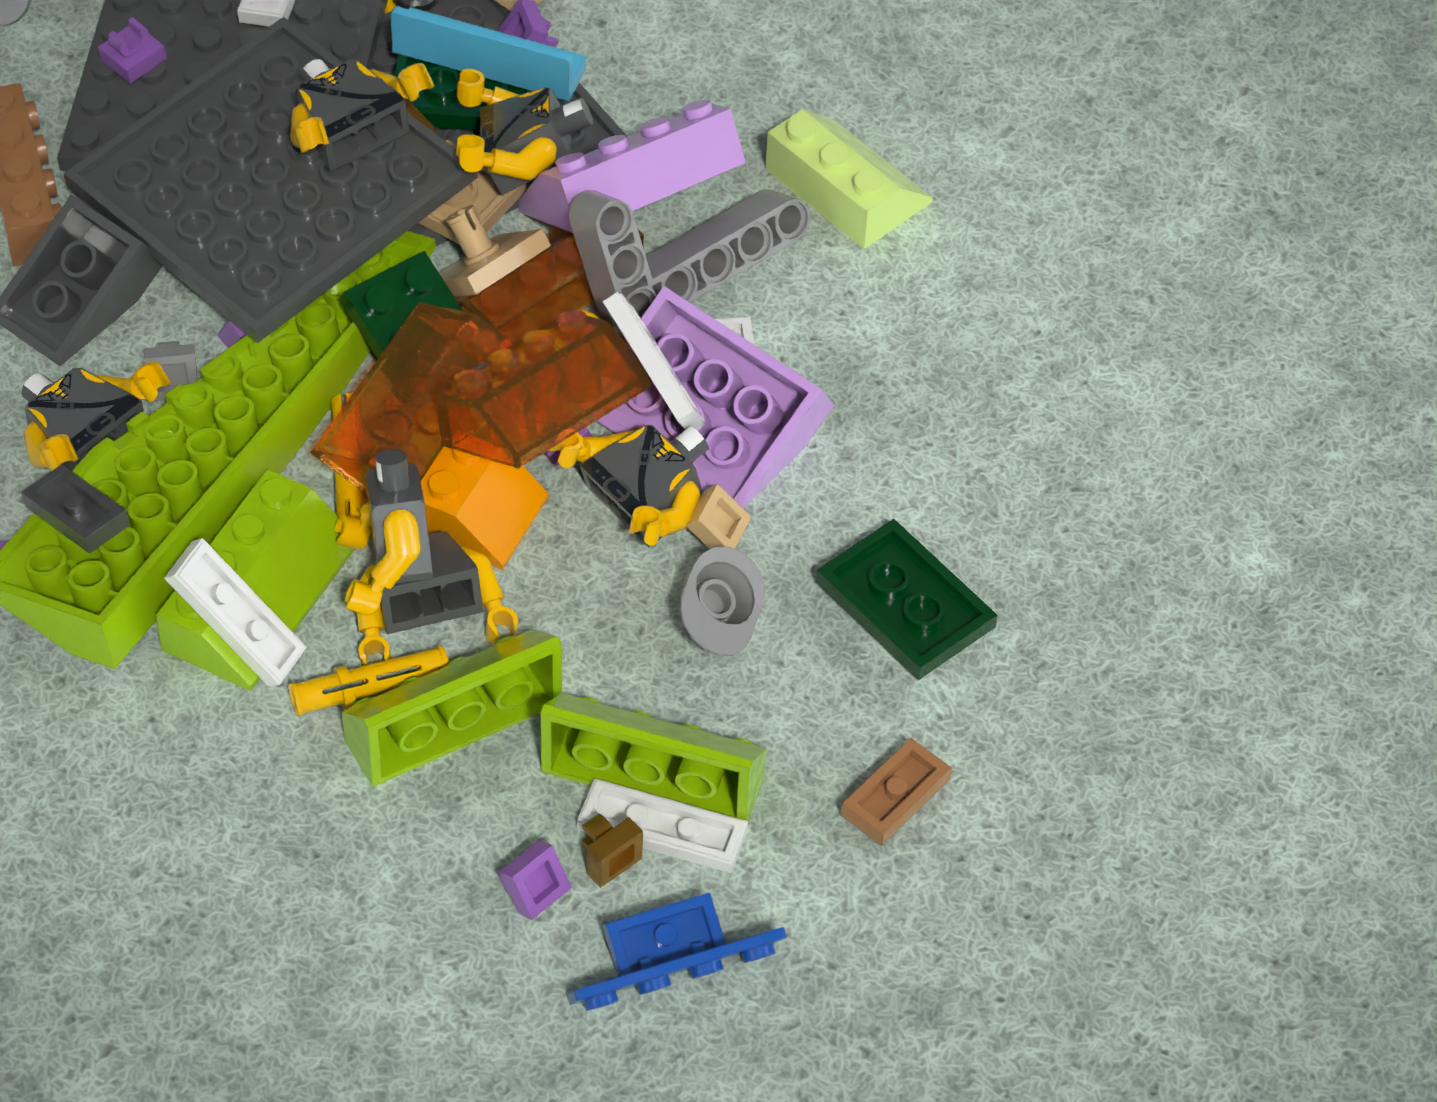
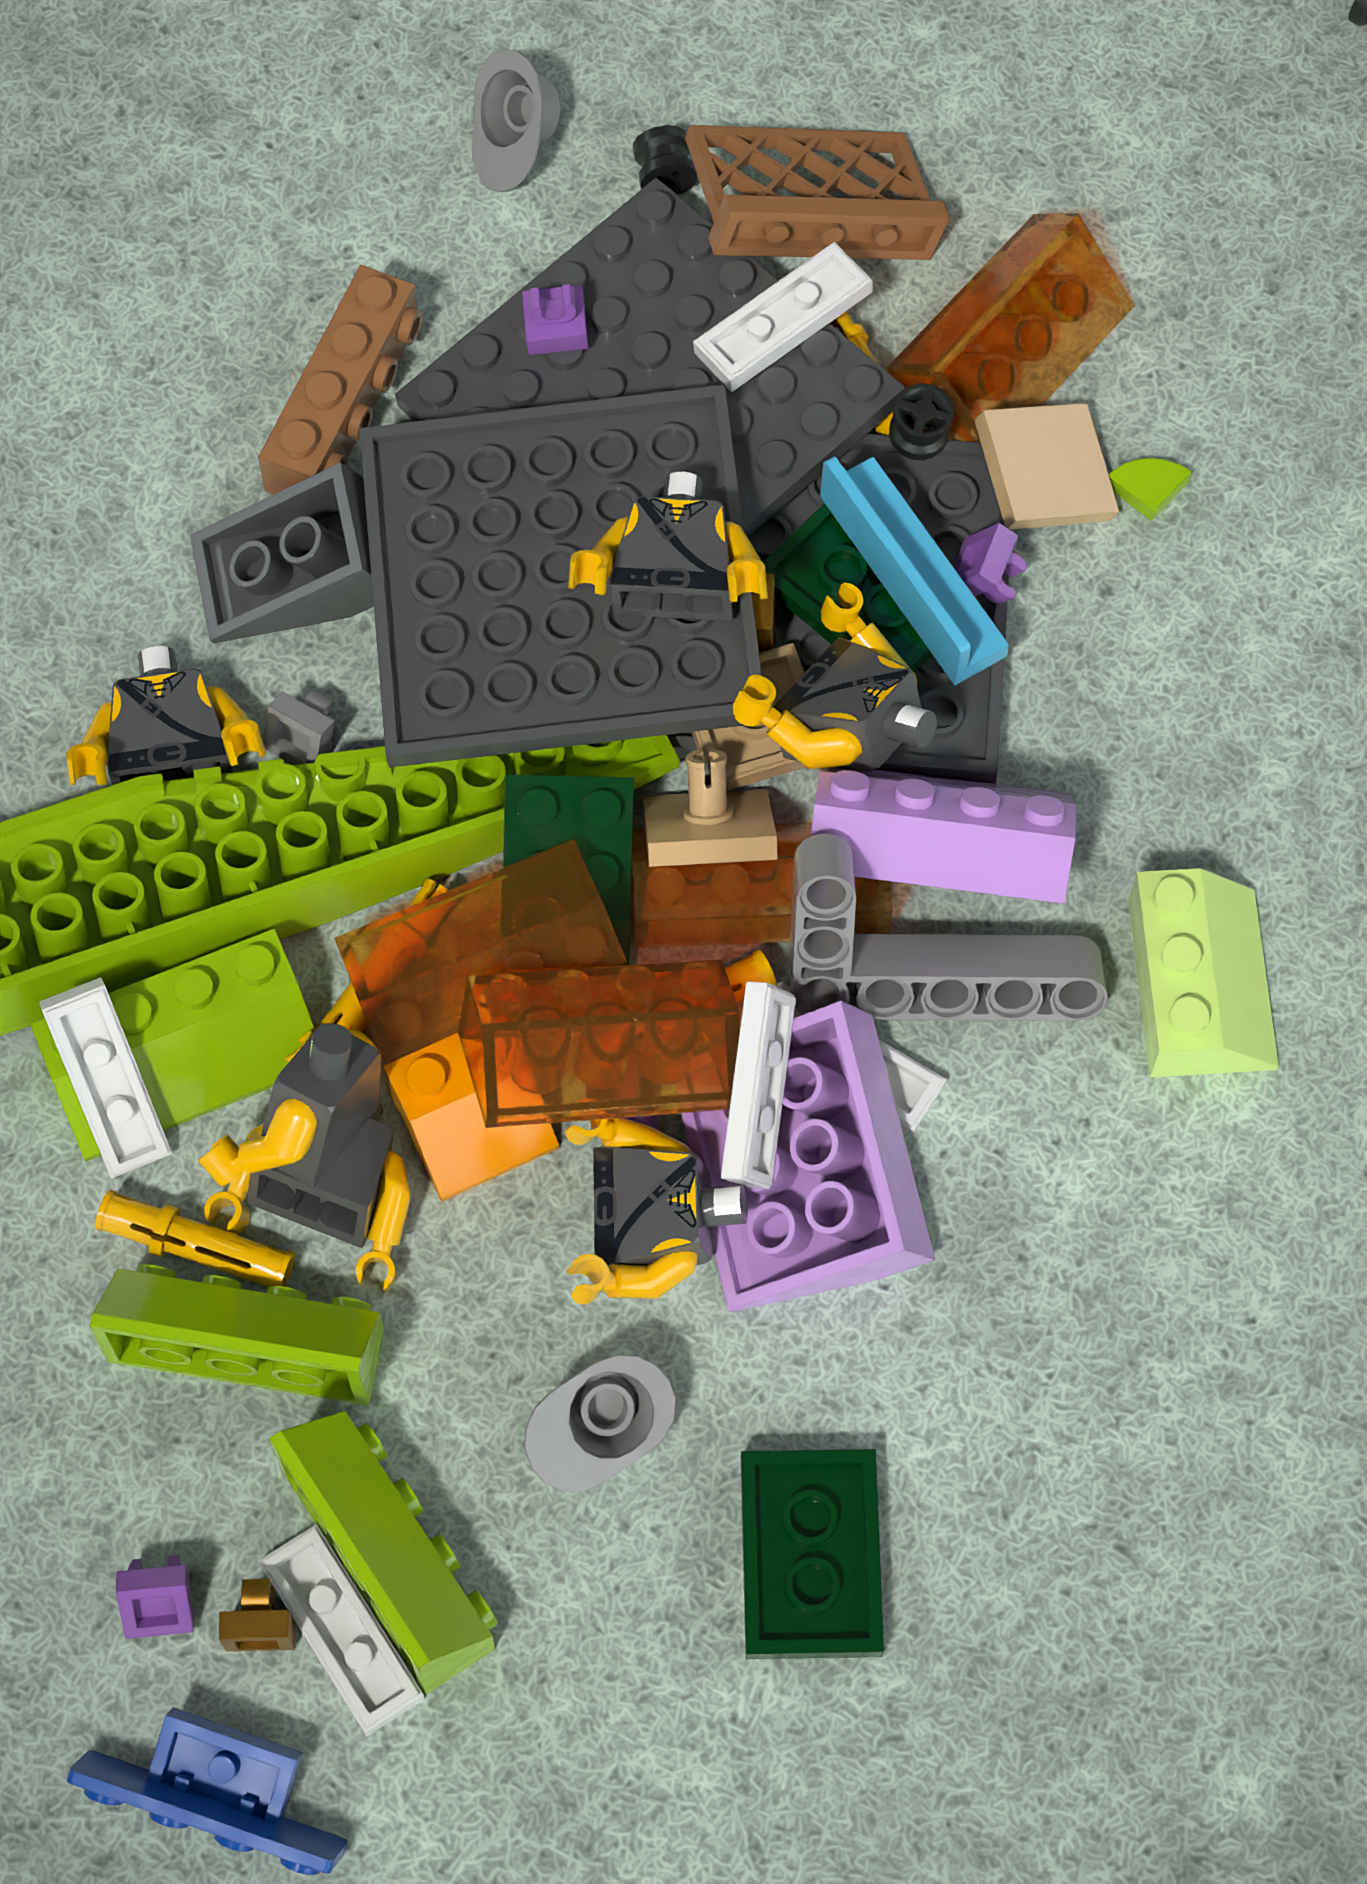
camera: 40 degrees right, 15 degrees up
(75, 508) = (39, 849): flat silver plate -> none
(718, 519) = (693, 1313): tan plate -> none
(896, 791) = (601, 1779): medium nougat plate -> none

